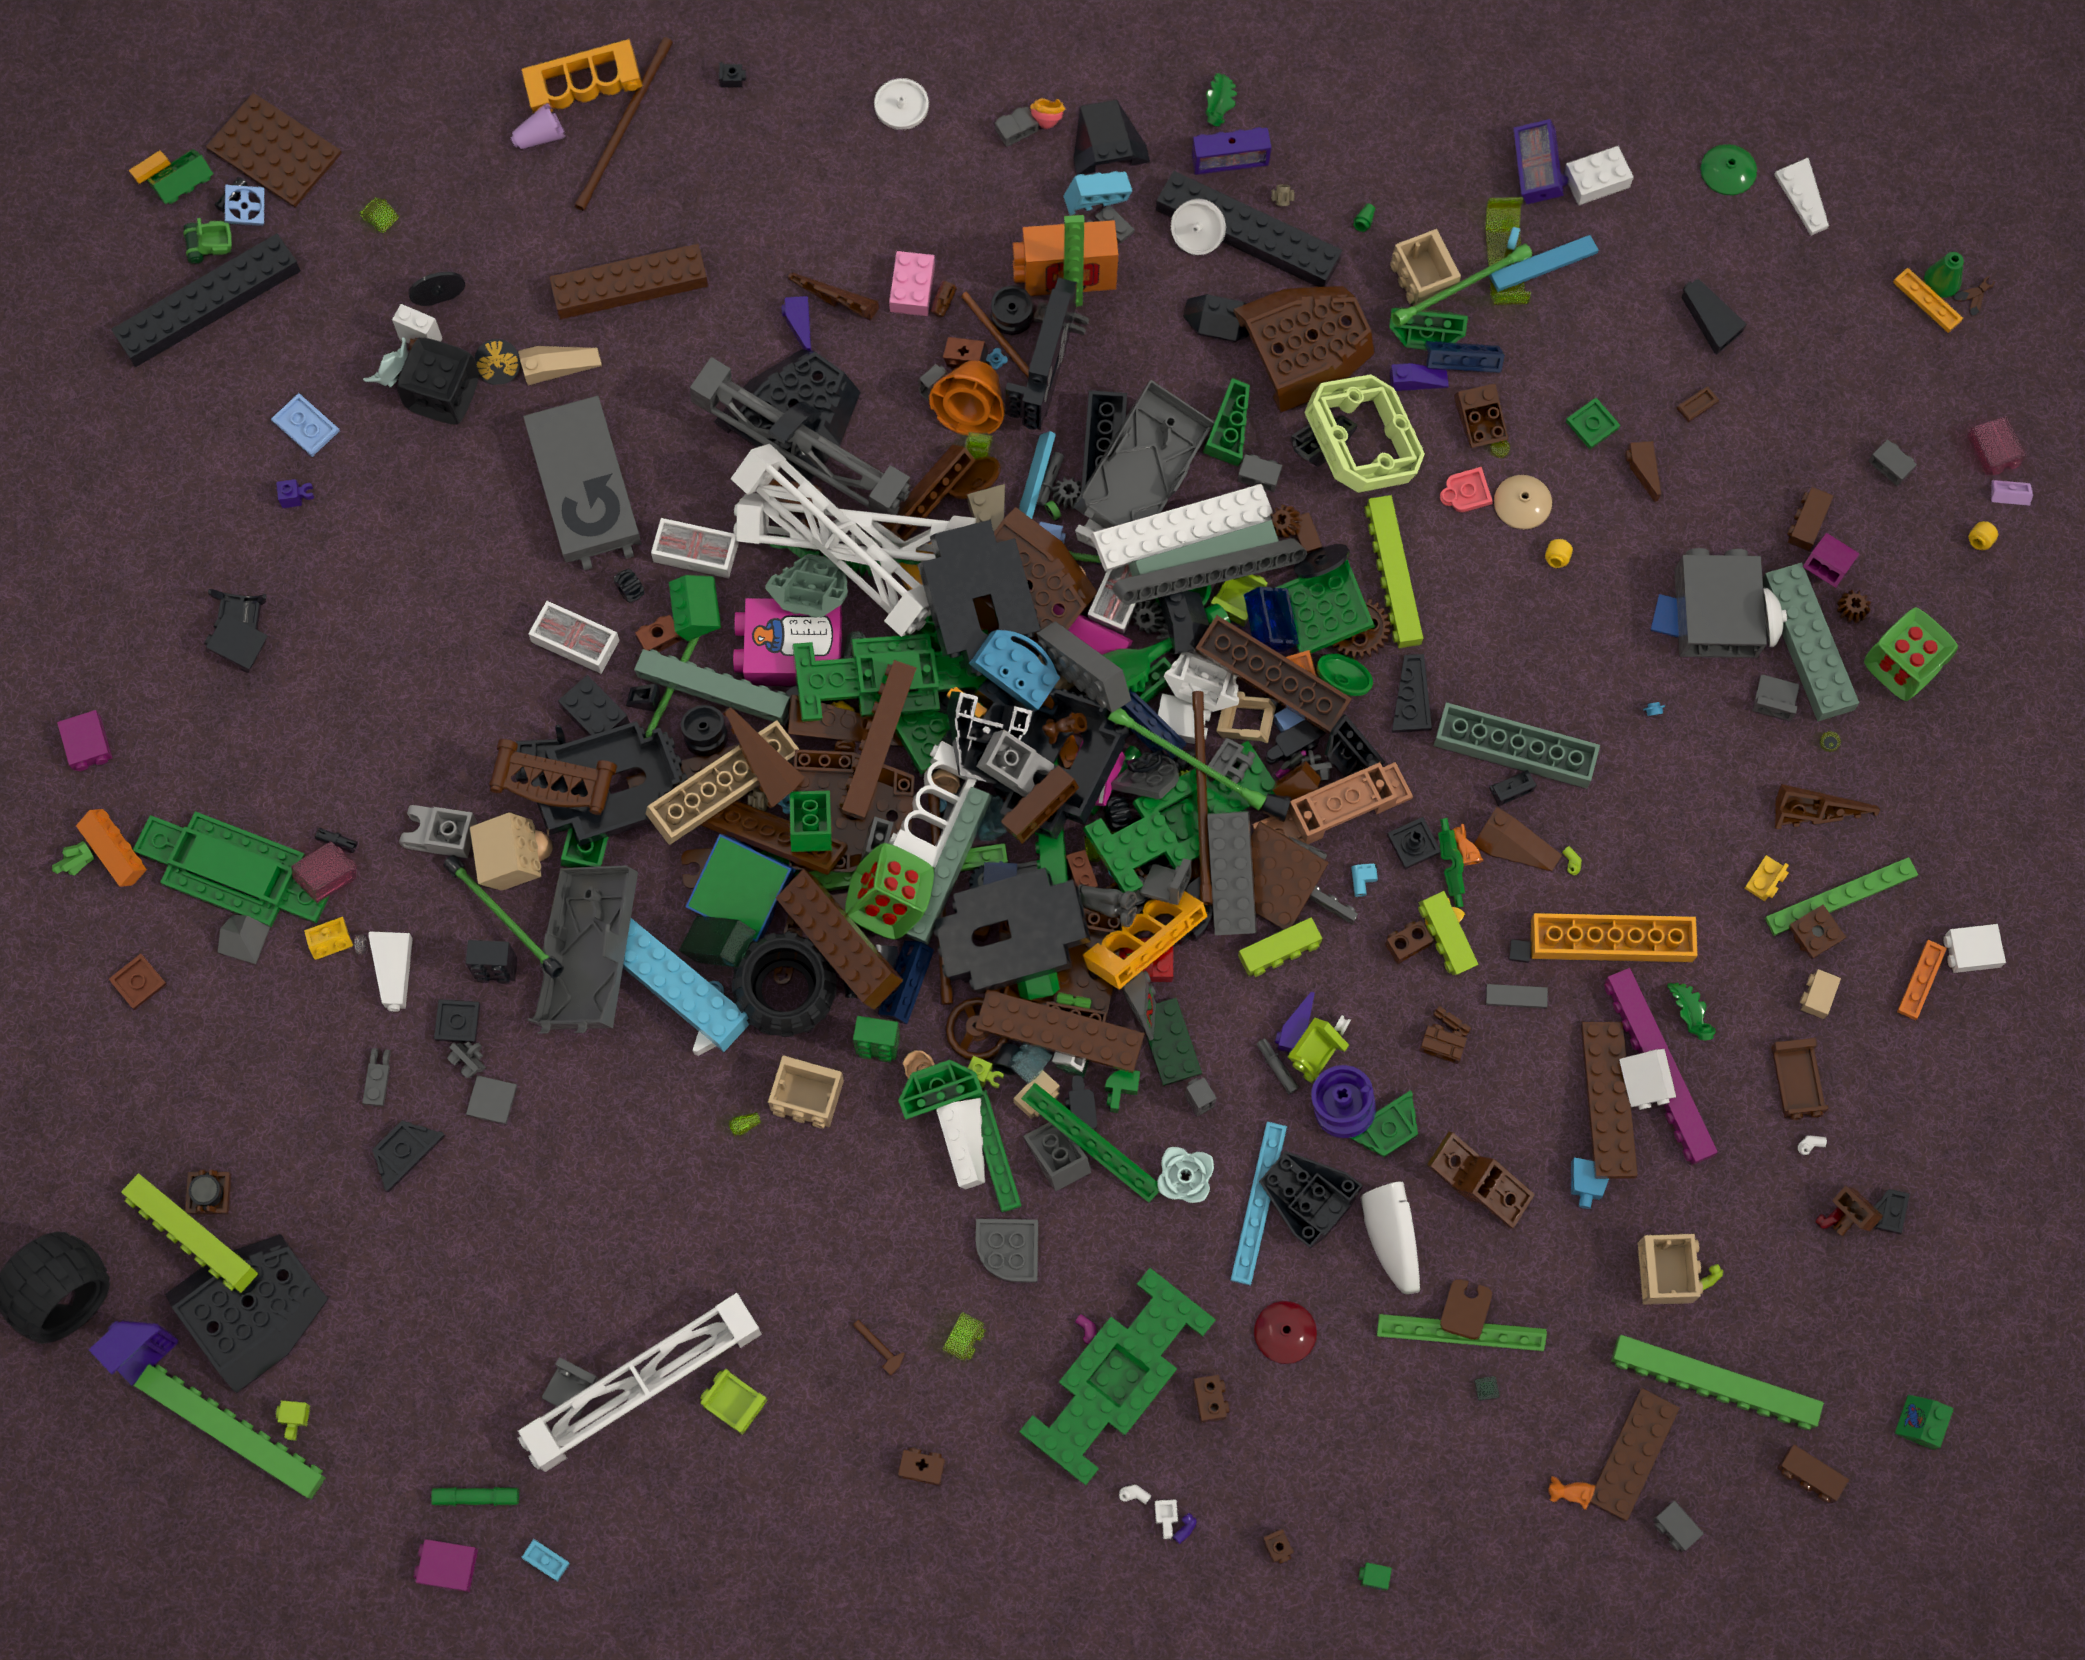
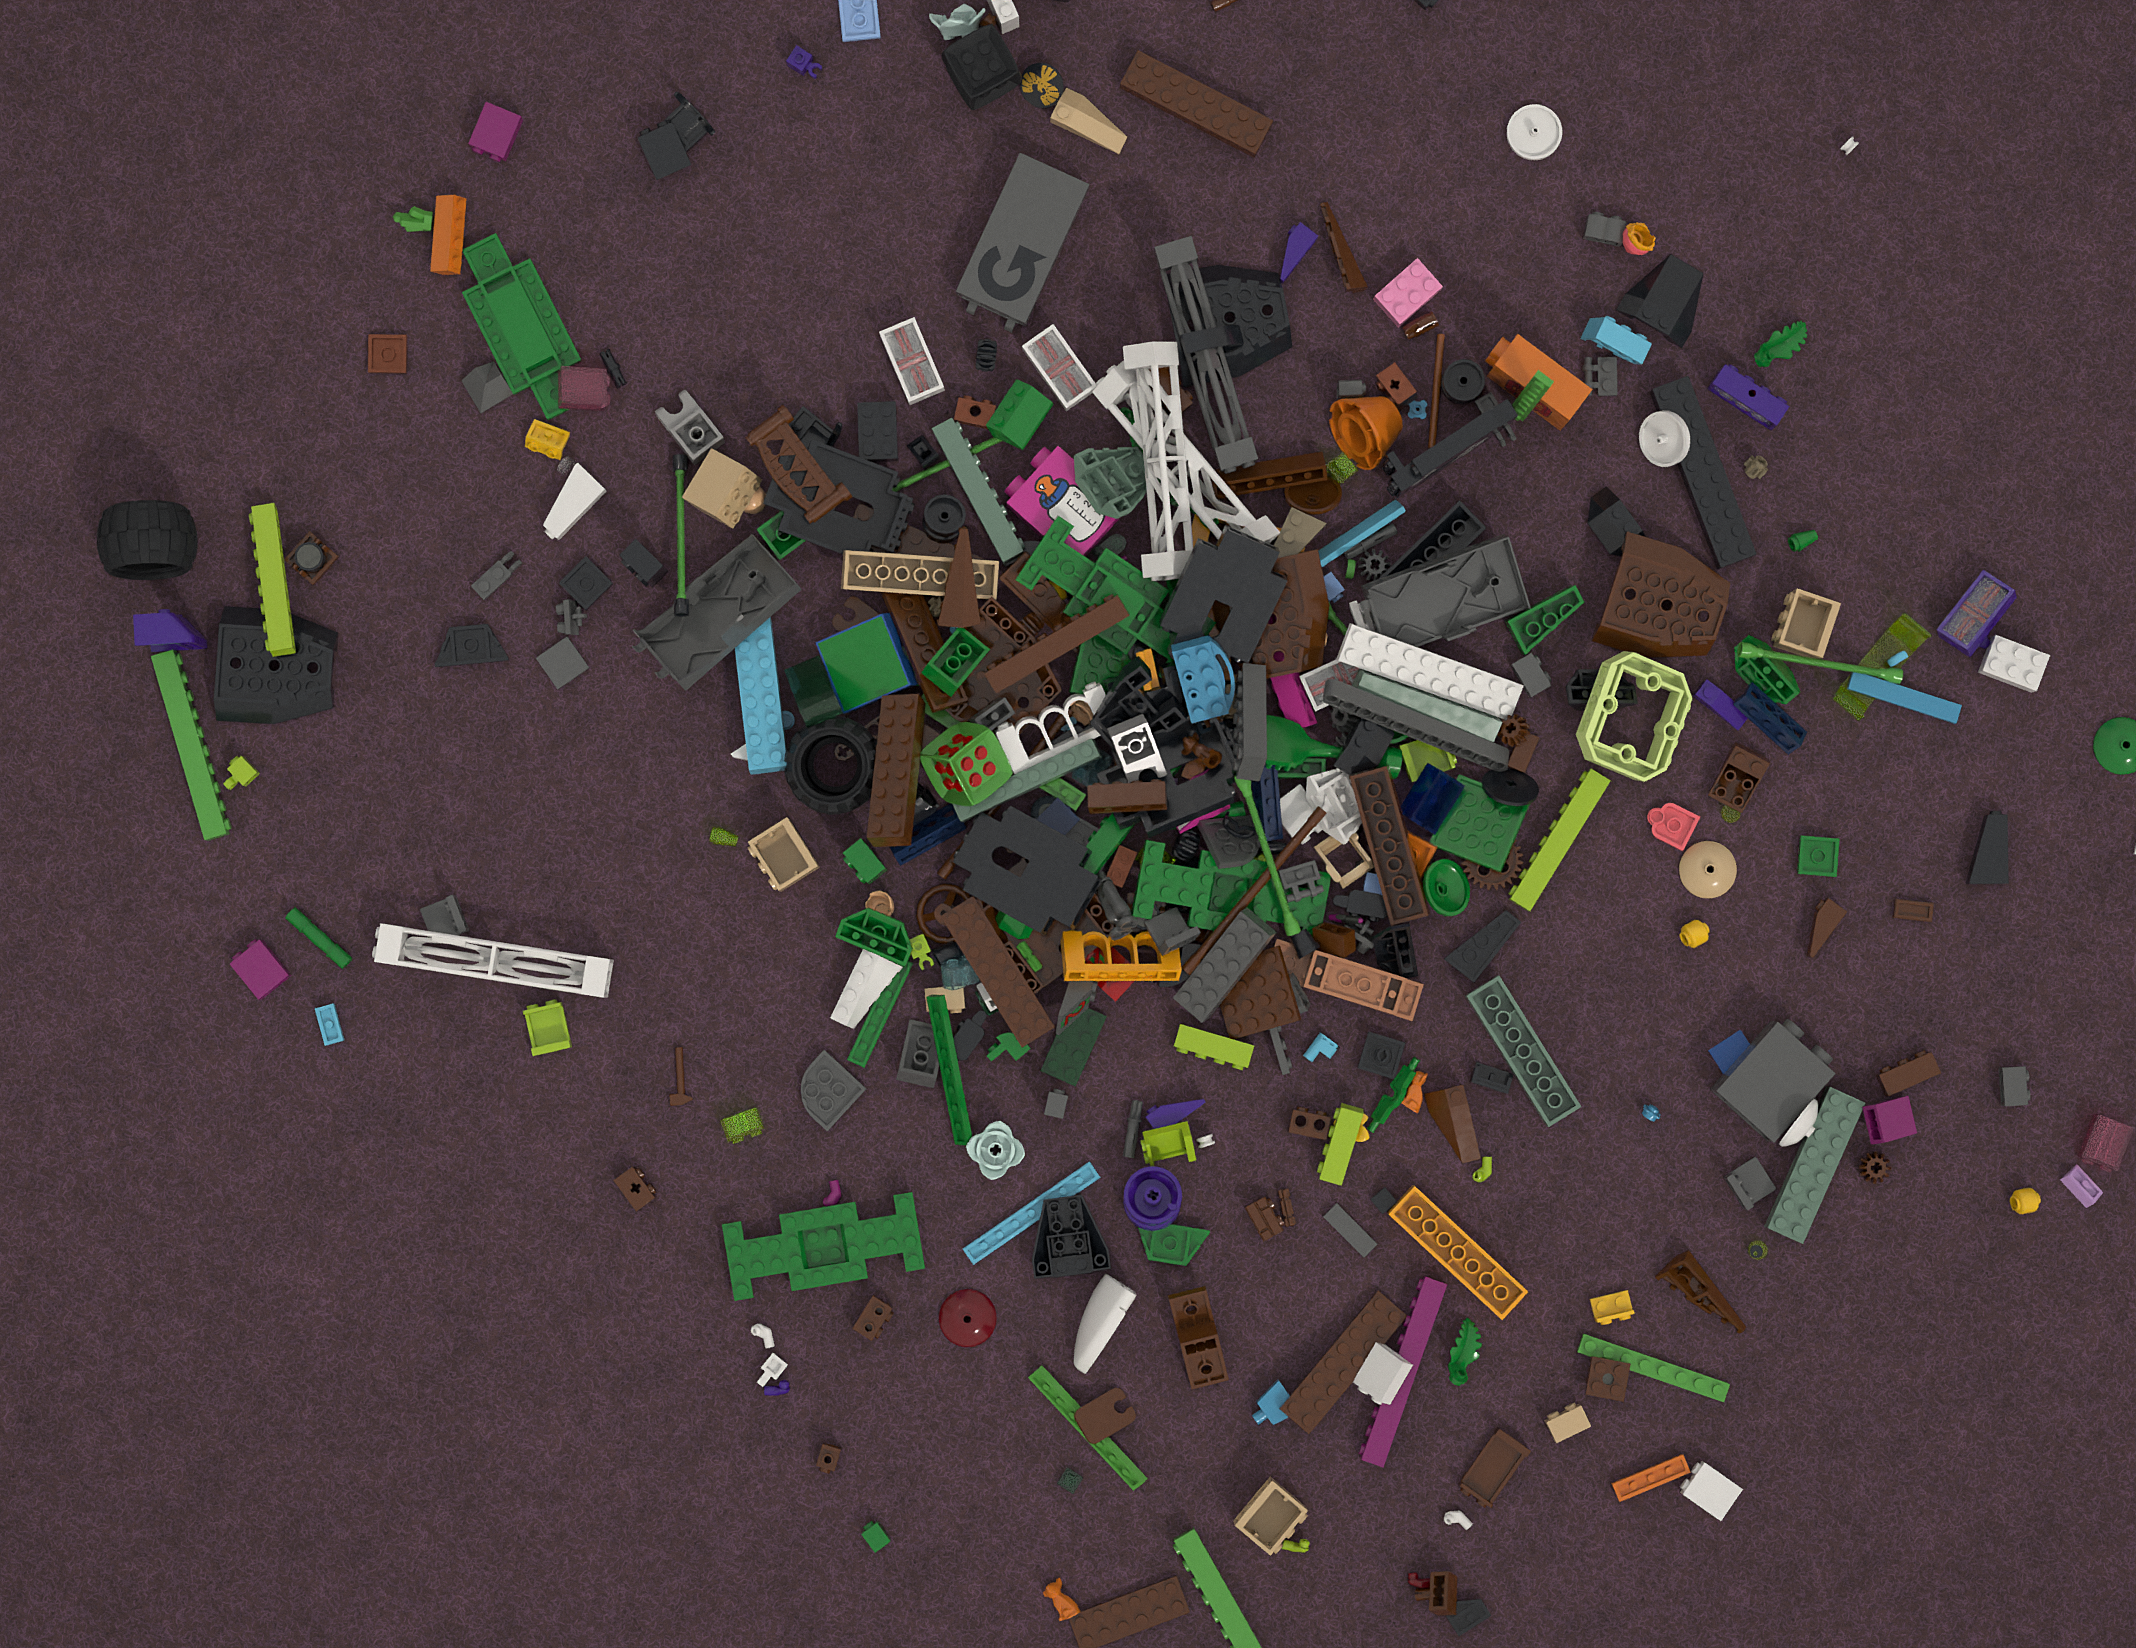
camera: 40 degrees right, 15 degrees up
(1910, 654) = (1875, 1243): bright green piece -> none

